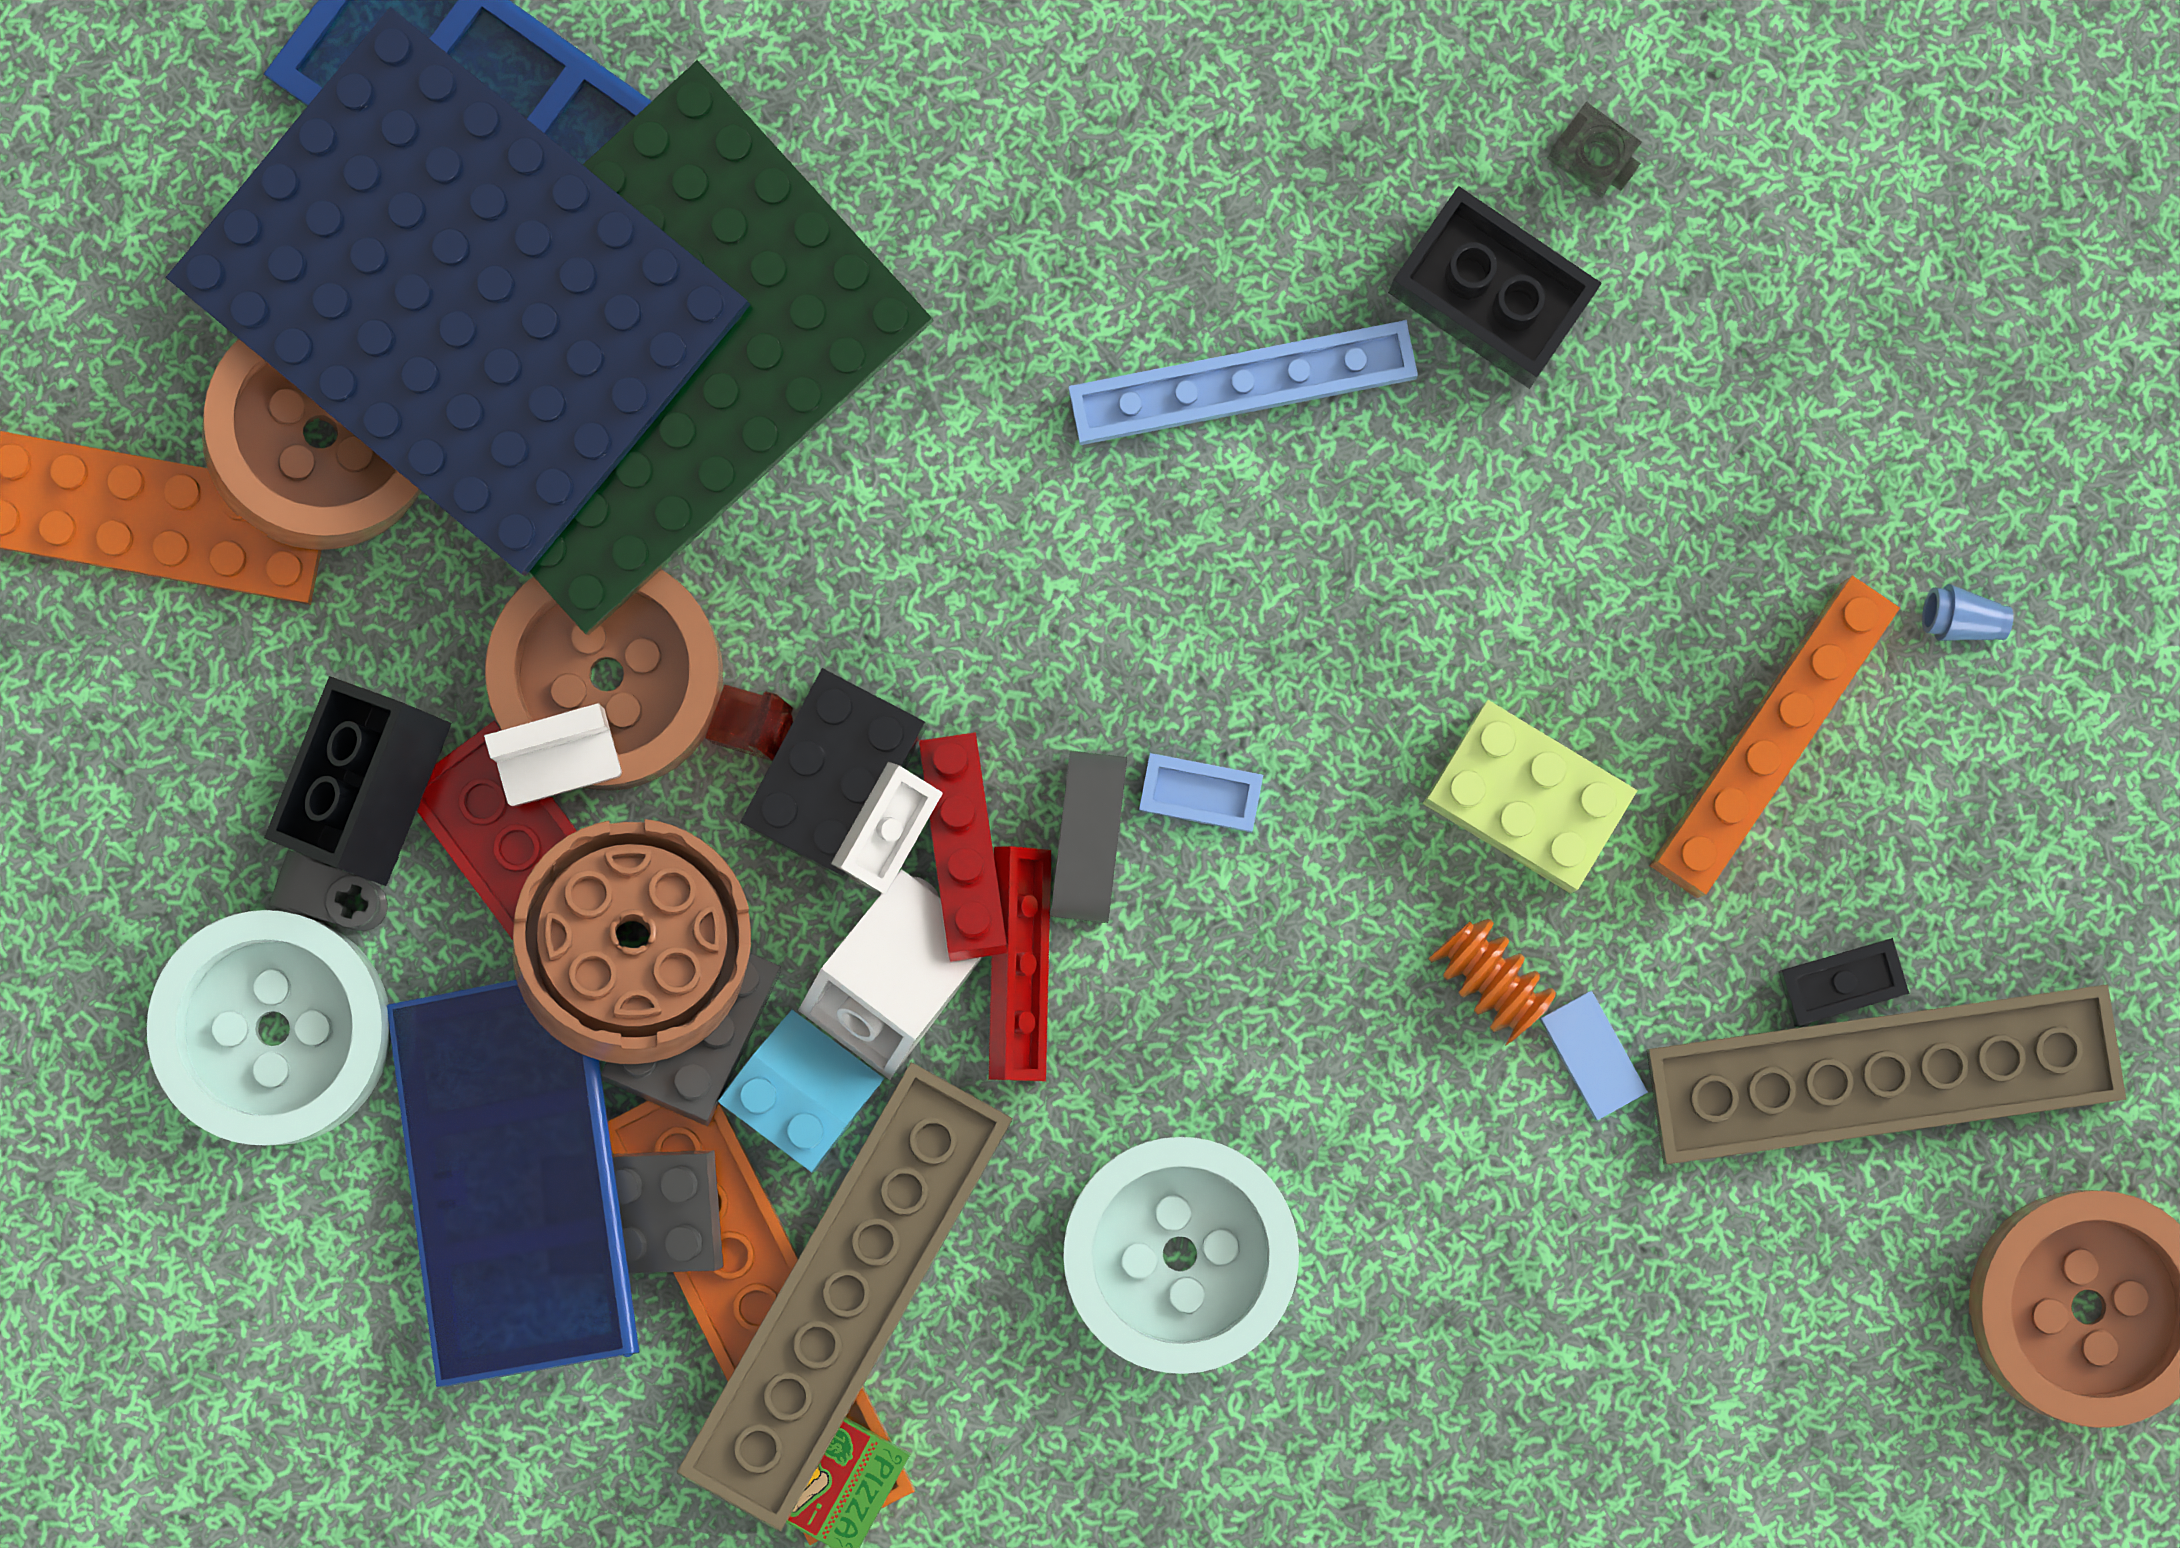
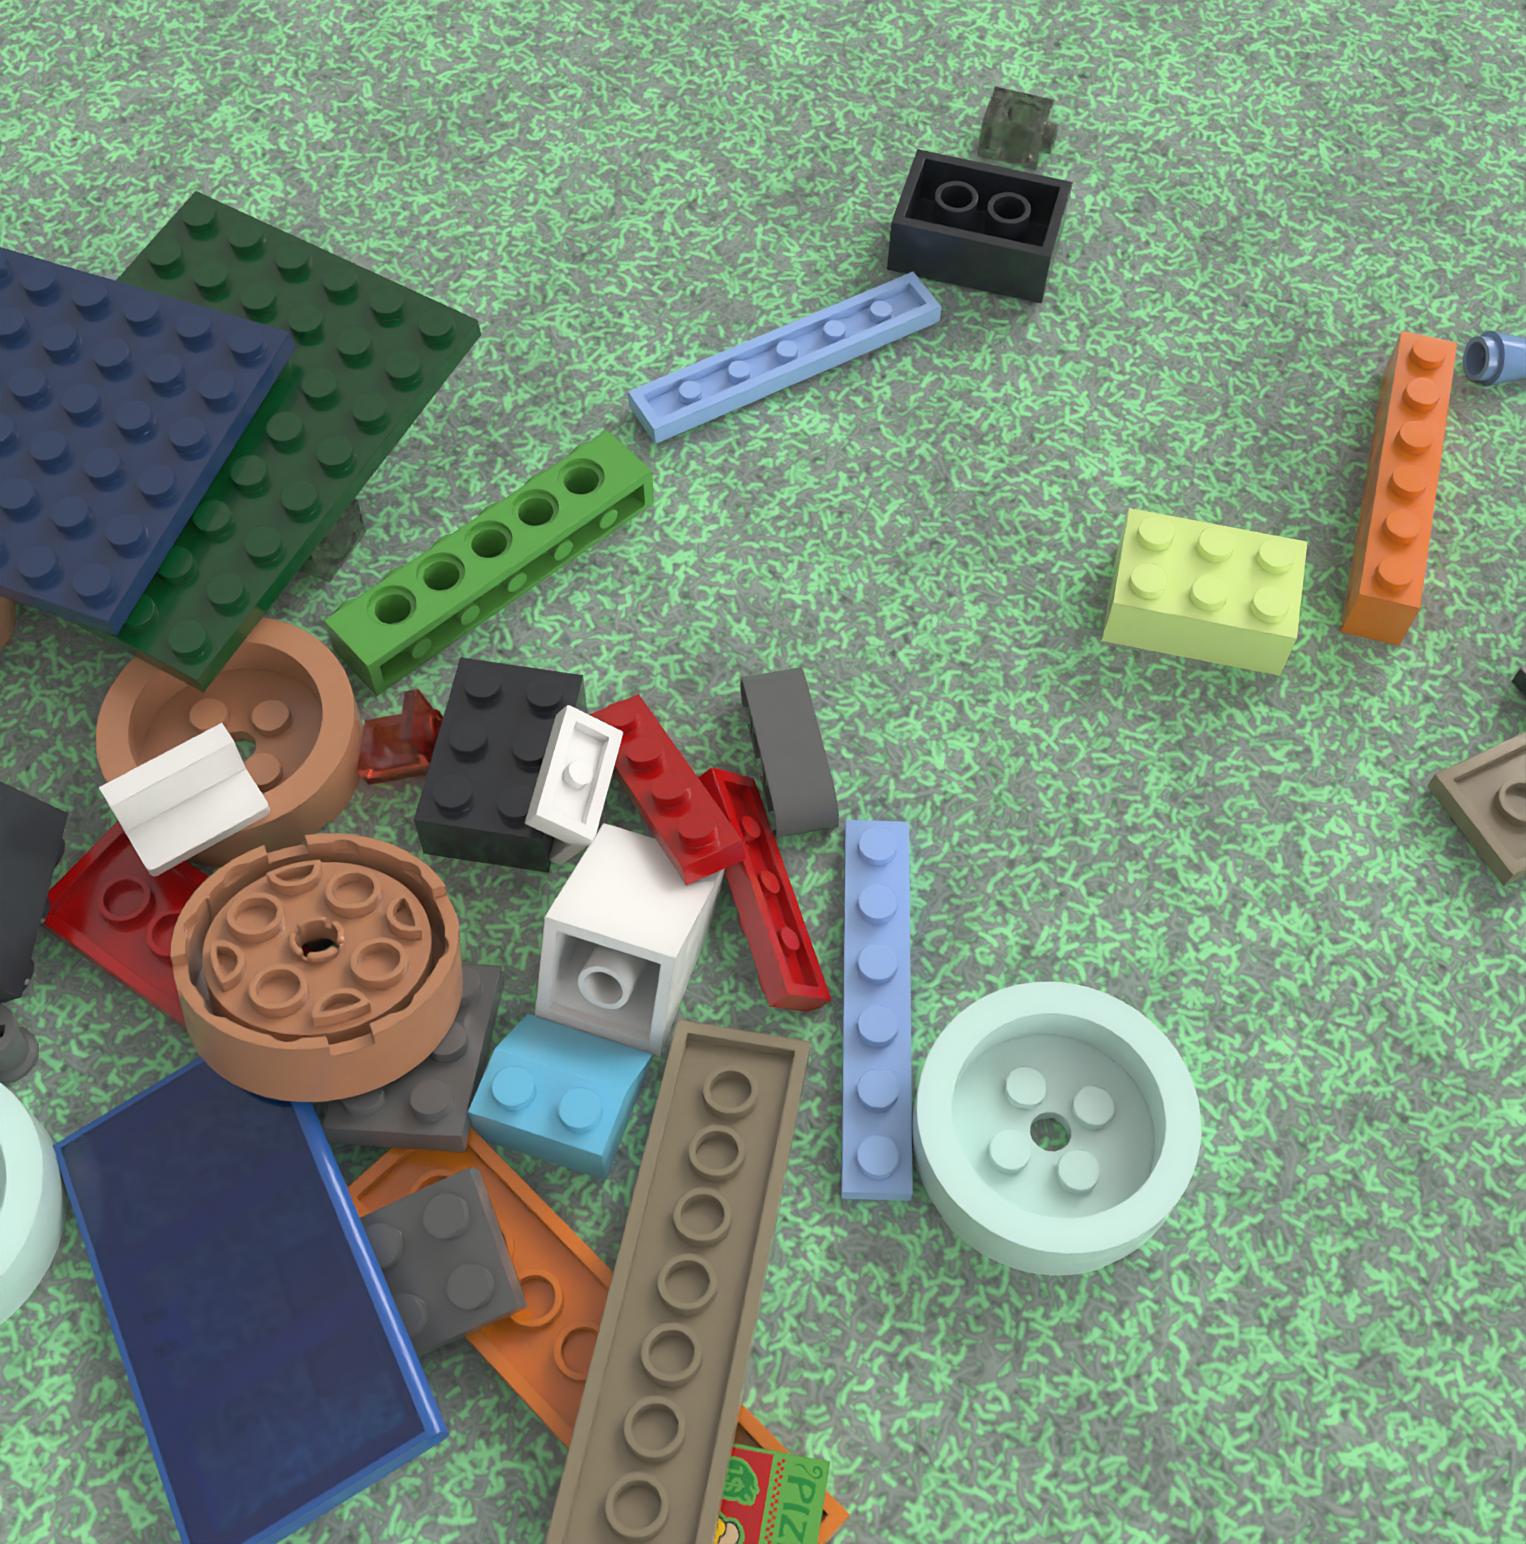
camera: 15 degrees left, 25 degrees down
(1025, 503) = (525, 534): none -> bright green brick
(1082, 1094) = (876, 1013): none -> light blue plate
(1201, 792) = (884, 687): light blue tile -> none
(1494, 978) = (1250, 755): orange piece -> none
(1593, 1055) = (1380, 806): light blue tile -> none

